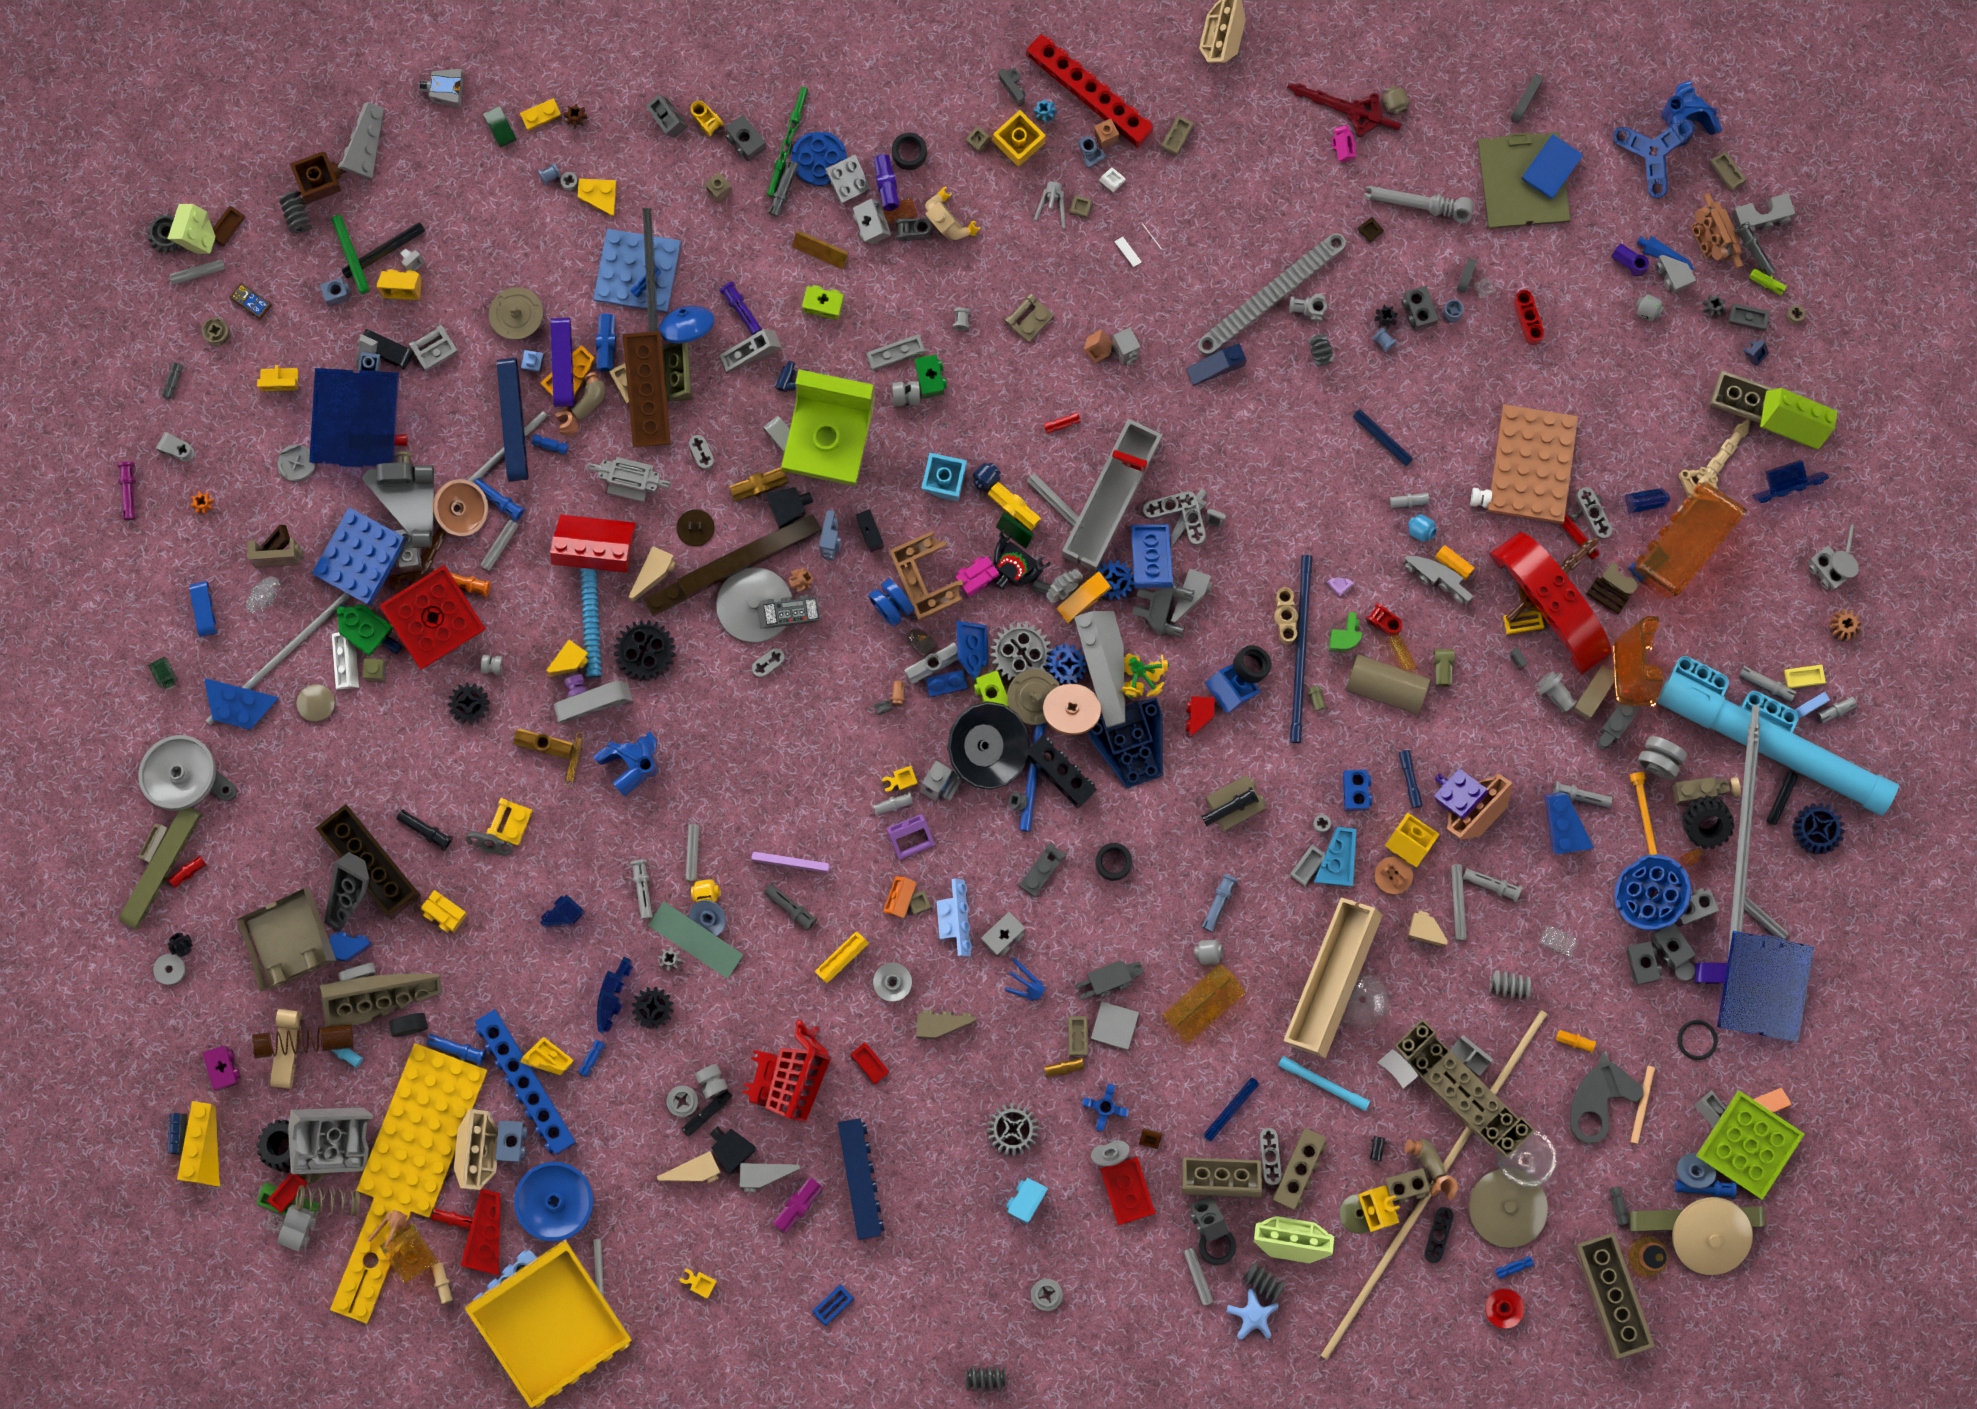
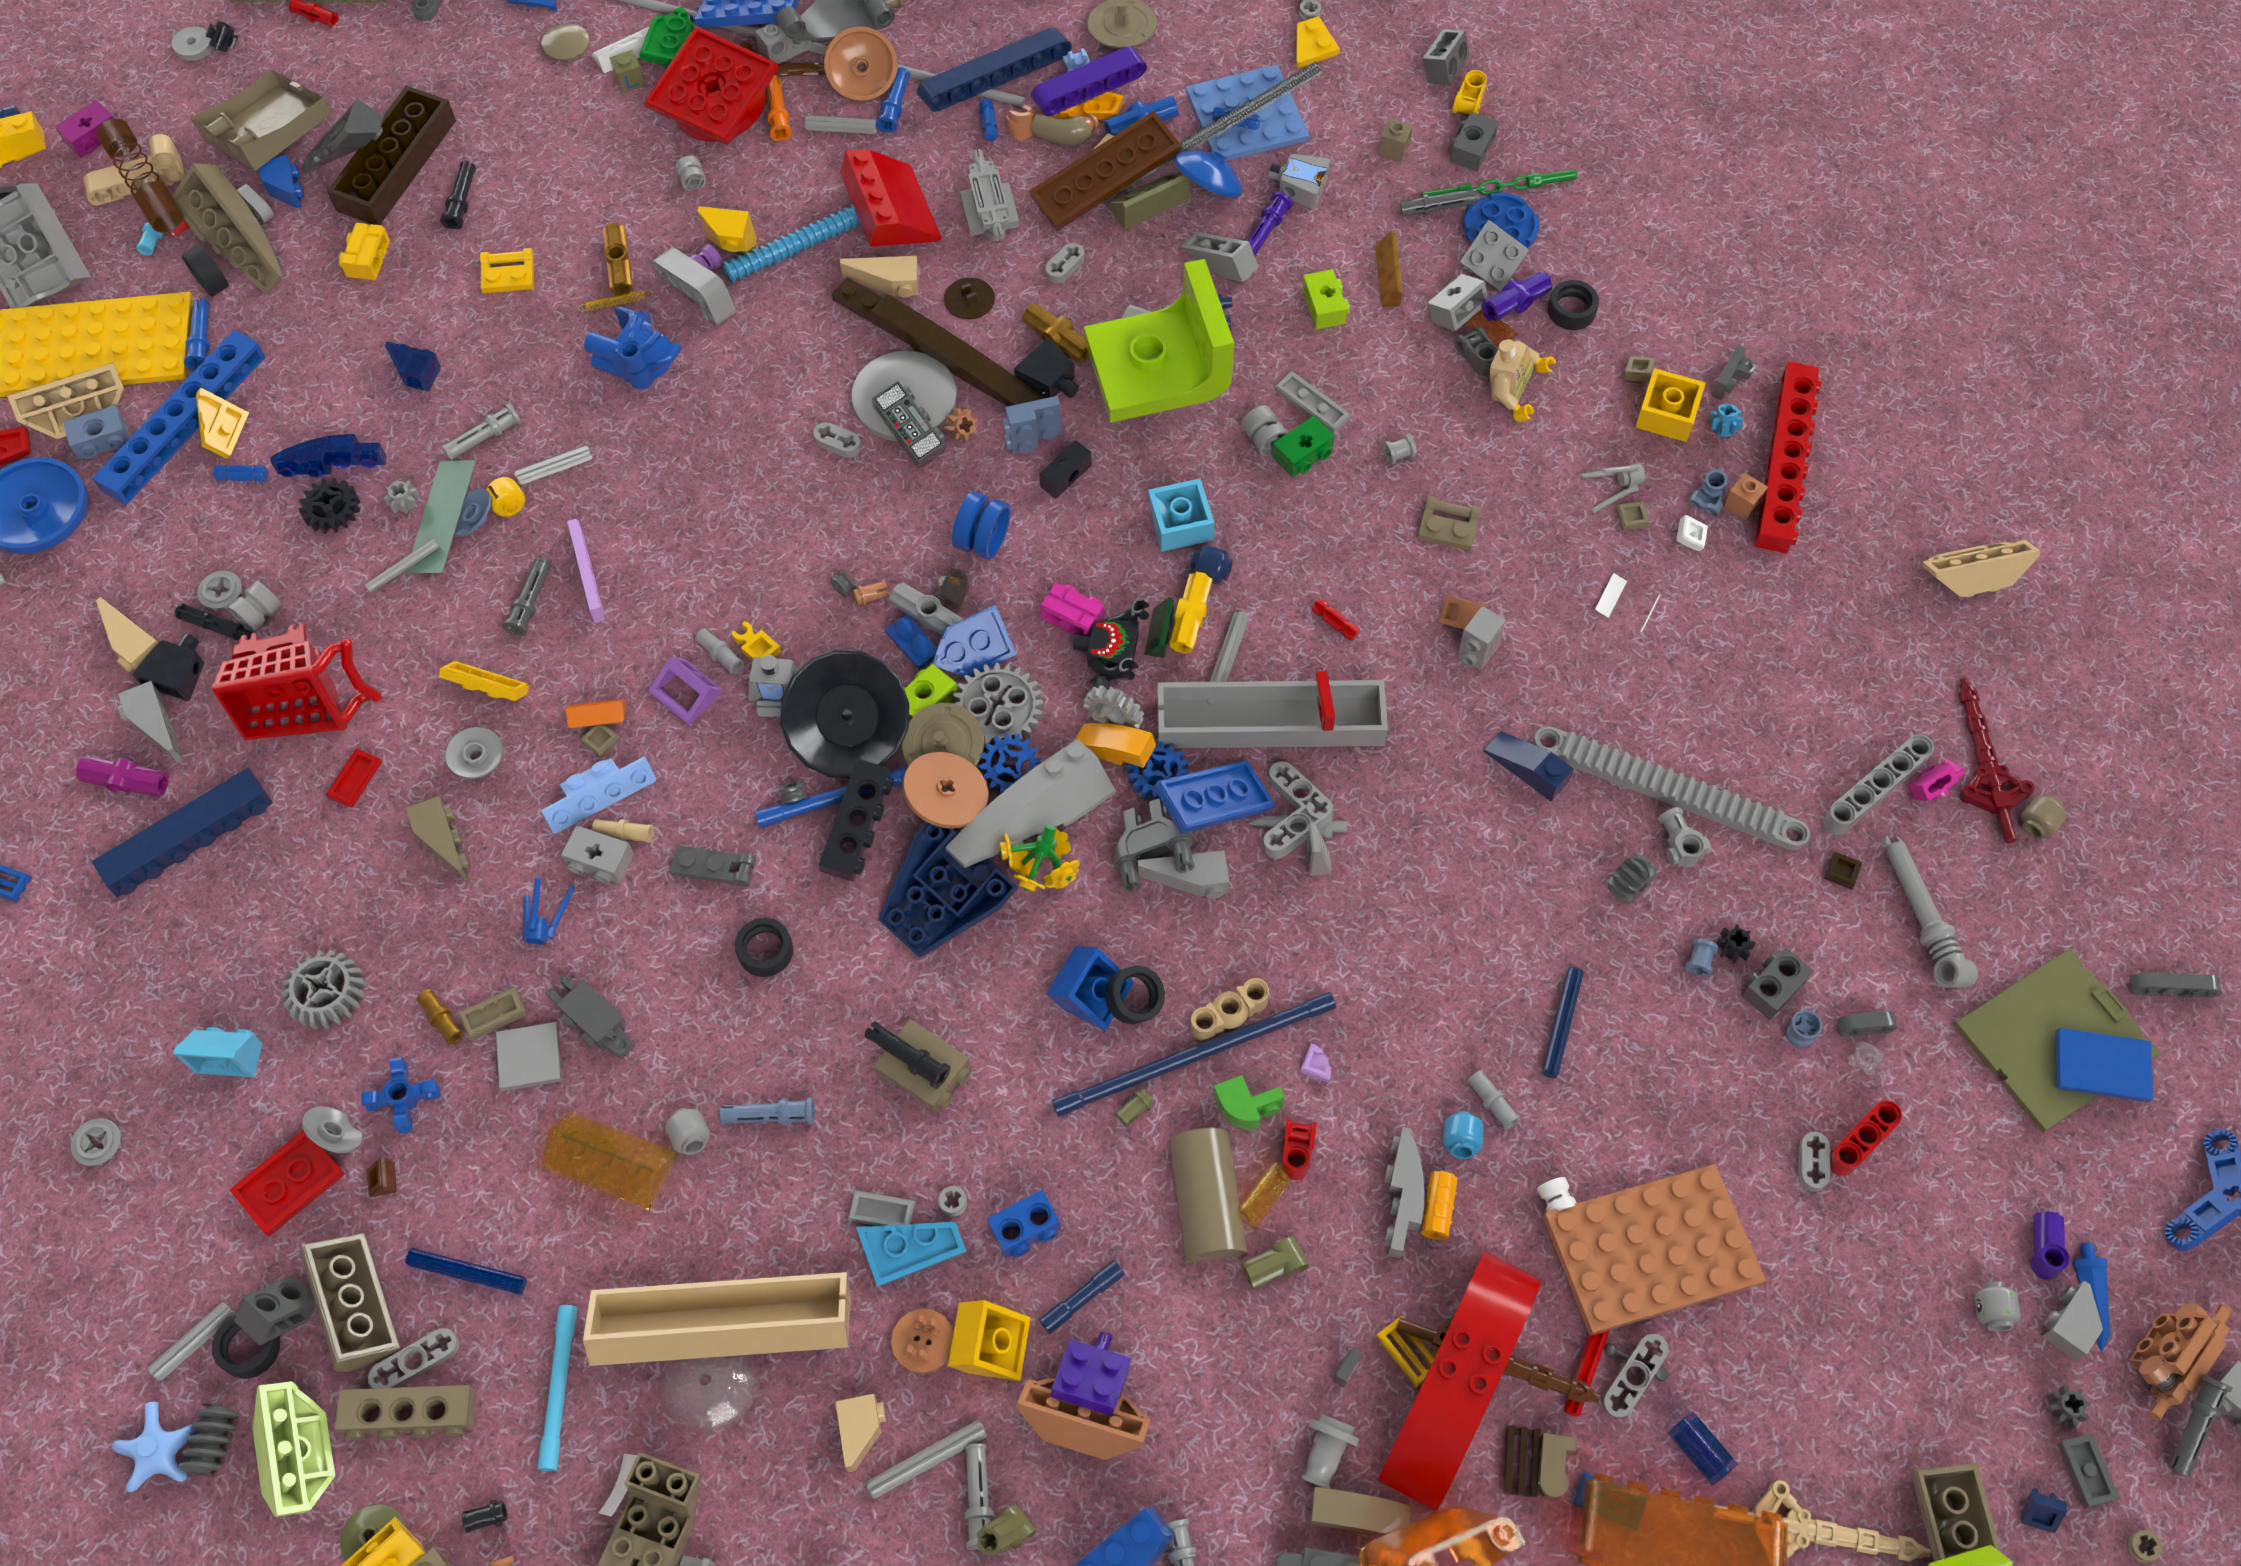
camera: 65 degrees right, 15 degrees down
(461, 703) = (632, 171): black gear -> none
(496, 849) = (469, 260): dark grey piece -> none
(660, 656) = (785, 308): black gear -> none
(716, 265) = (1302, 178): none -> light grey torso
(724, 978) = (402, 566): none -> light grey bar
(905, 560) = (1004, 567): medium nougat wedge -> none
(992, 913) = (624, 830): none -> tan pin
(1177, 135) = (1802, 579): dark tan plate -> none
(1201, 713) = (1028, 962): red slope -> none
(1331, 169) = (1883, 774): none -> light grey beam
(1520, 877) = (1005, 1531): none -> olive piece
(1529, 347) = (1807, 1161): none -> light grey beam
(1767, 281) = (2162, 1473): lime axle -> none

